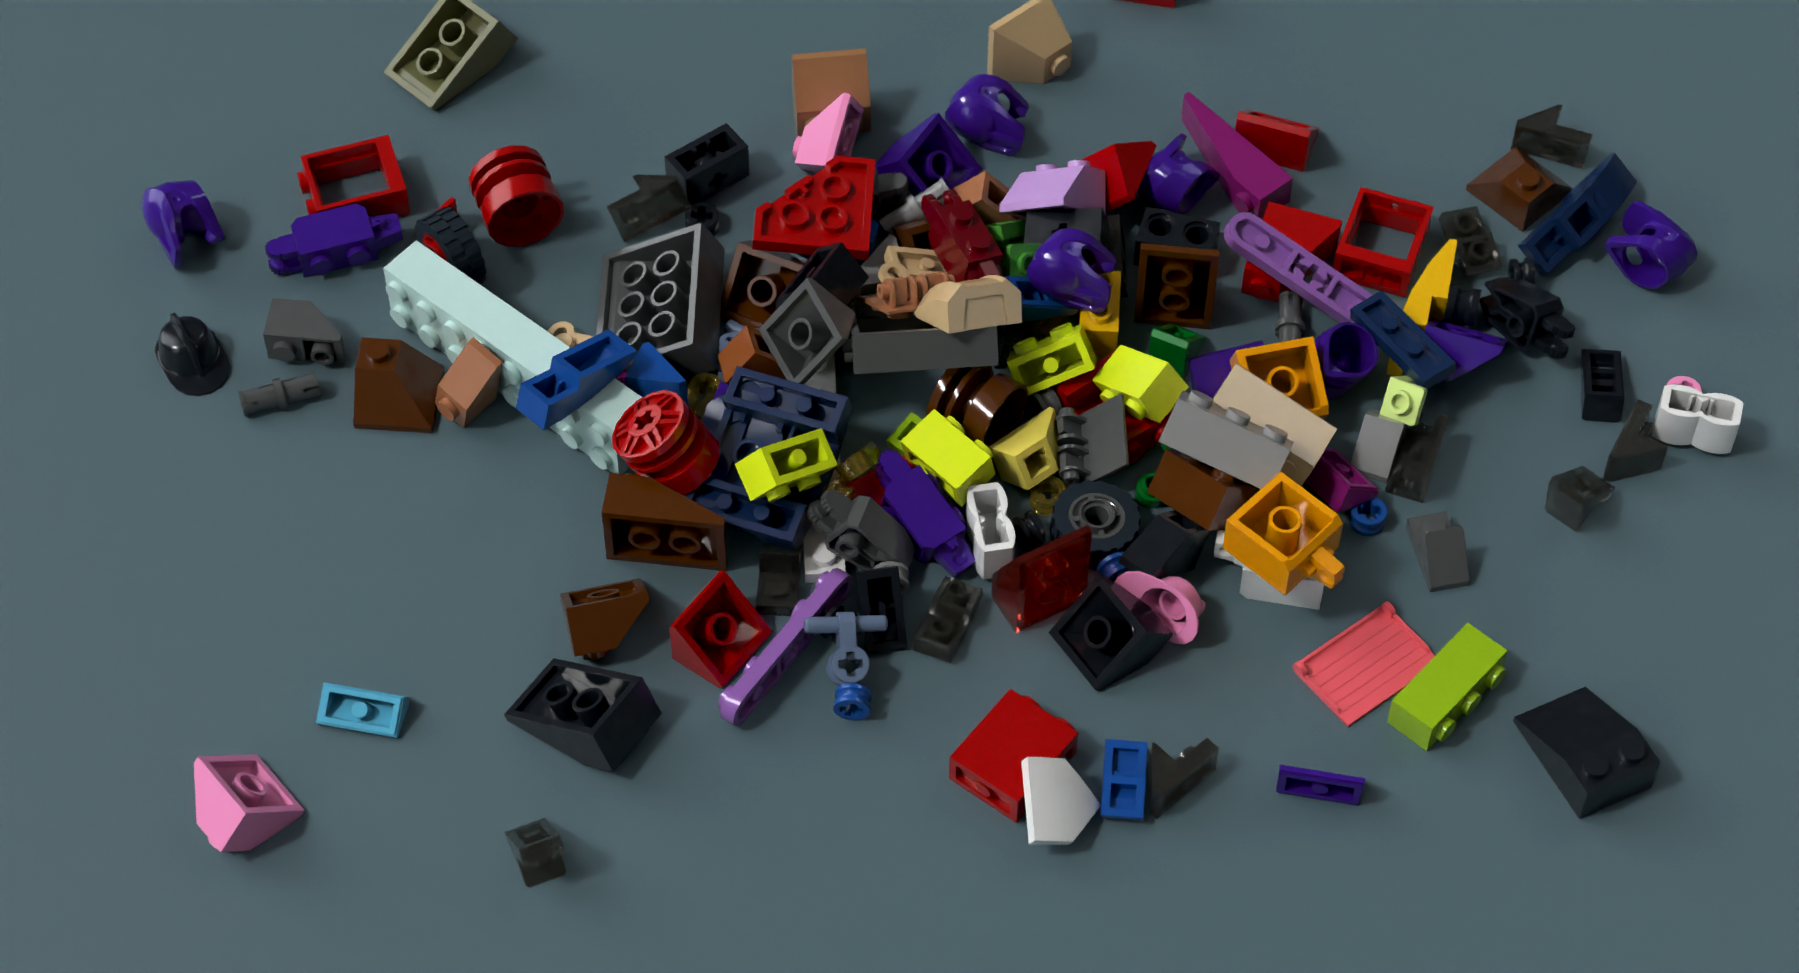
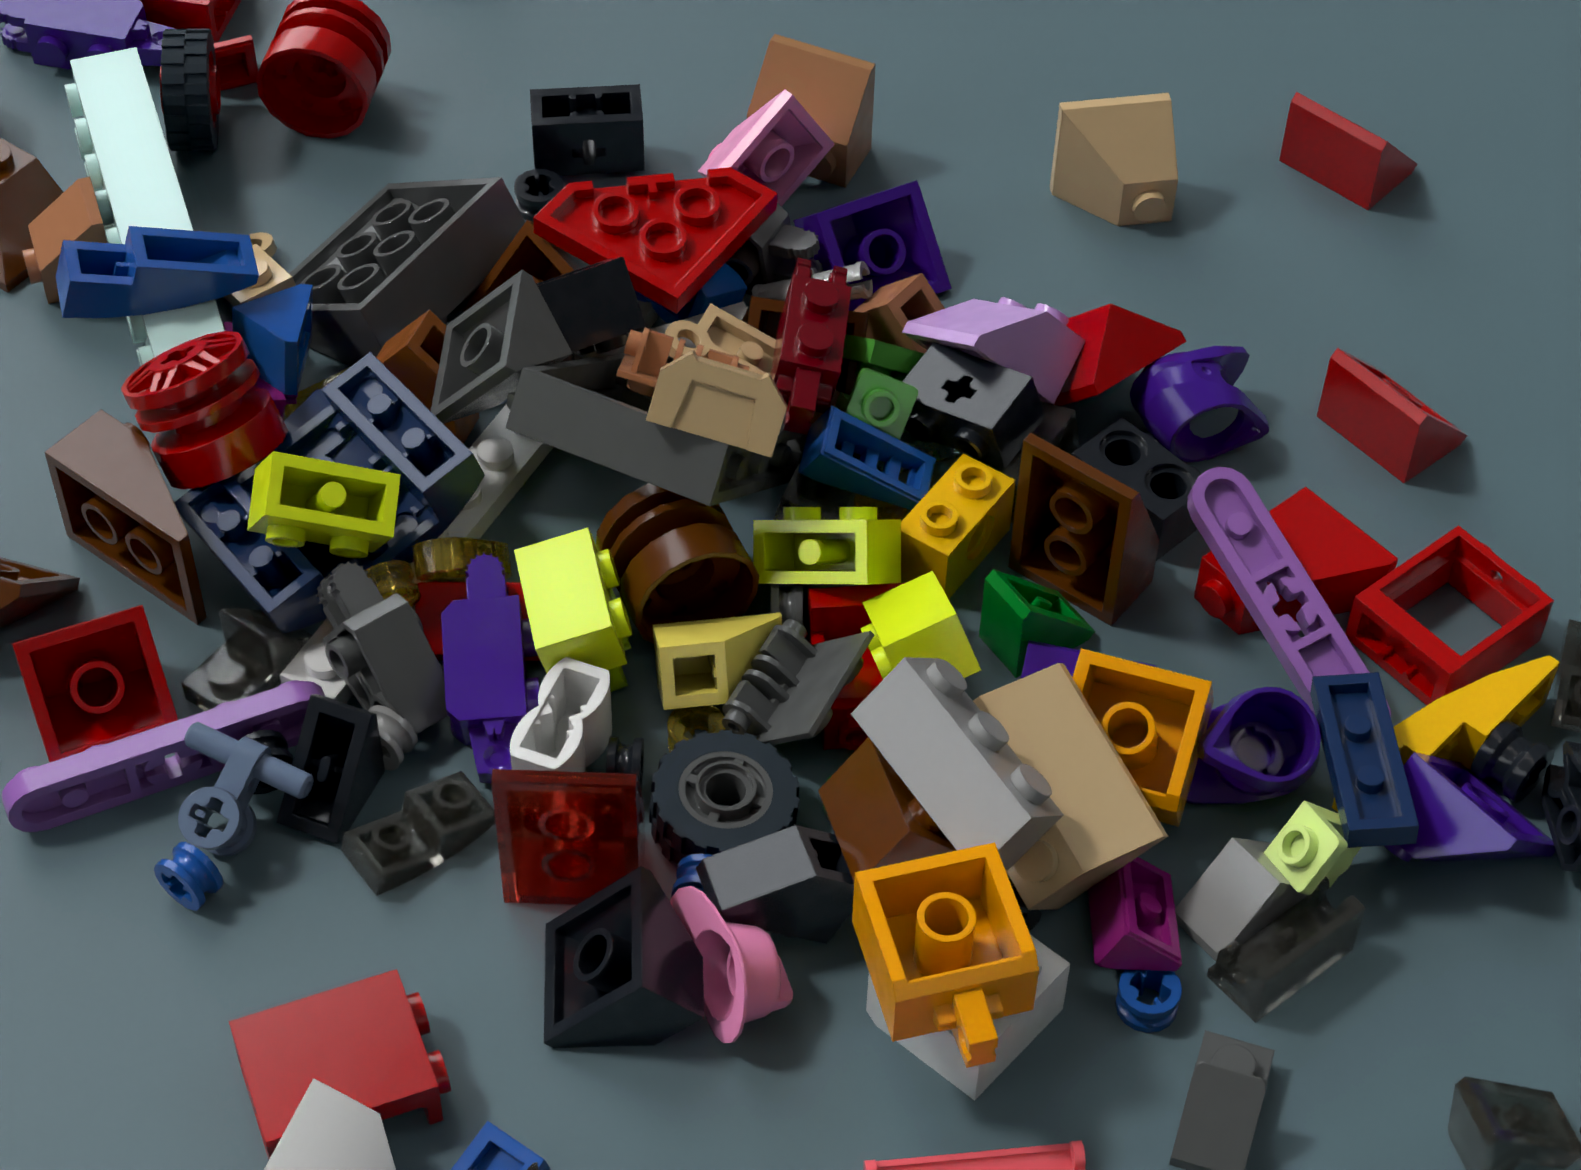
camera: 30 degrees right, 5 degrees down
(654, 203) = (476, 146): clear smoke slope -> none
(982, 119) = (983, 222): dark purple helmet -> none
(1064, 274) = (909, 441): dark purple helmet -> none
(1245, 172) = (1307, 428): magenta slope -> none
(1290, 322) = (1234, 662): dark grey pin -> none

